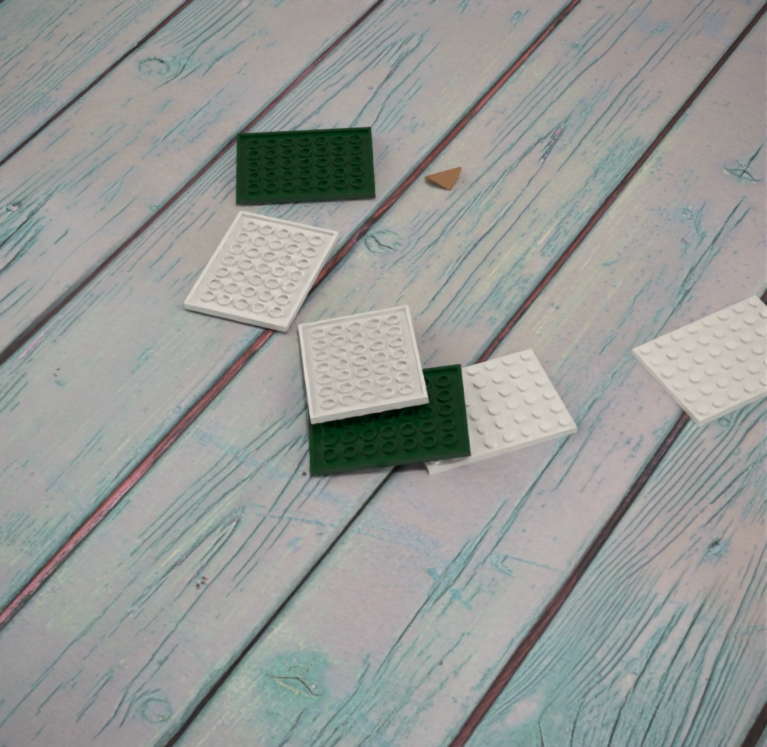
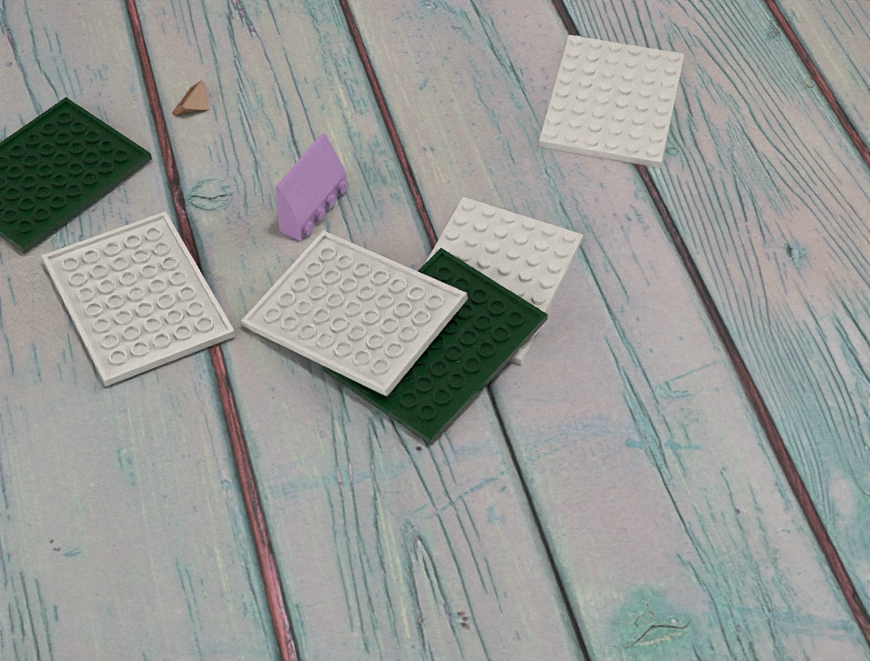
camera: 50 degrees left, 5 degrees up
(431, 272) = (310, 189): none -> lavender slope

